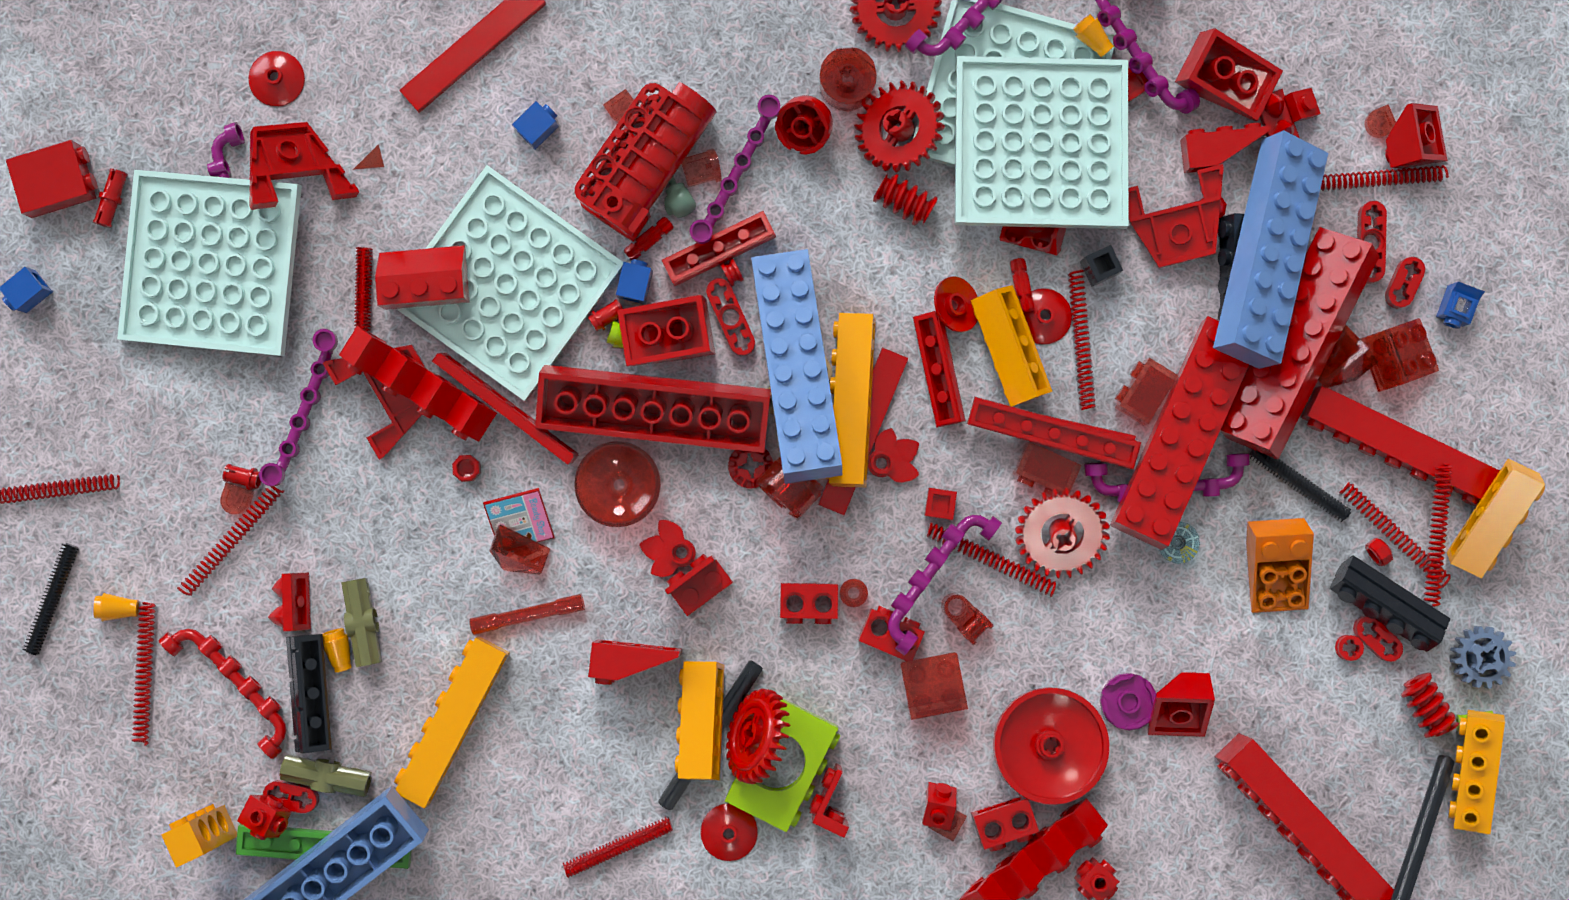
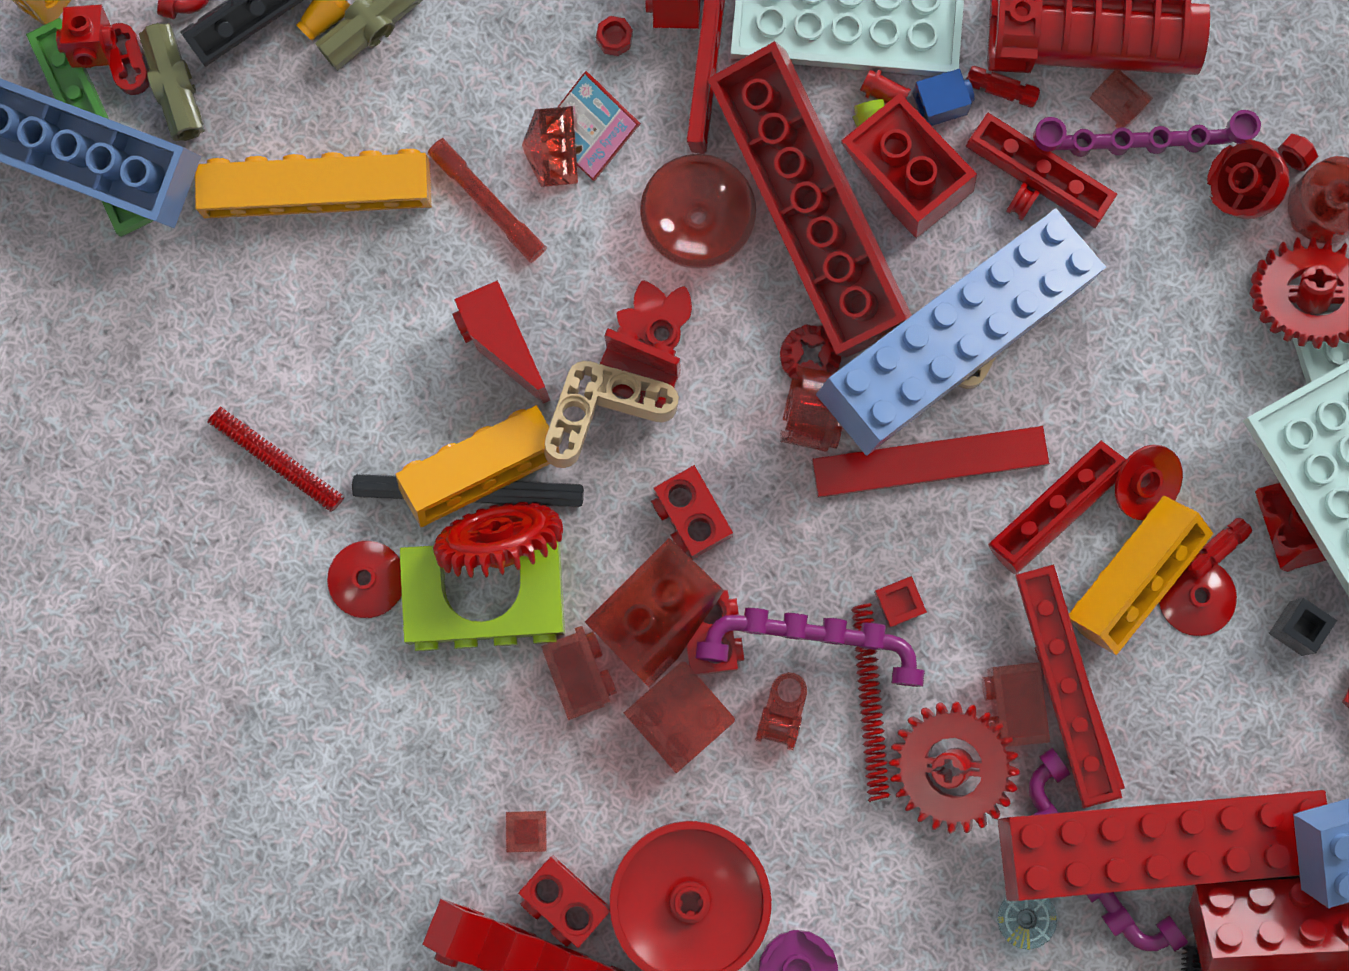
camera: 65 degrees right, 5 degrees down
(678, 200) = (1068, 94): sand green piece -> none
(701, 616) = (600, 393): none -> tan beam
(729, 294) = (976, 203): red beam -> none
(802, 79) = (1298, 152): none -> red tile
(833, 818) = (450, 687): red bracket -> none
(853, 394) = (964, 422): light orange brick -> none
(853, 602) = (733, 548): clear red plate -> none
(860, 663) = (656, 611): none -> clear red slope
(868, 732) = (578, 674): none -> clear red bracket
(897, 455) = (926, 519): red plate -> none
(905, 199) = (1232, 348): red piece -> none
(939, 805) = (539, 809): red bracket -> none
(1081, 339) = (1196, 653): red piece -> none
(1146, 390) = (1185, 770): clear red brick -> none

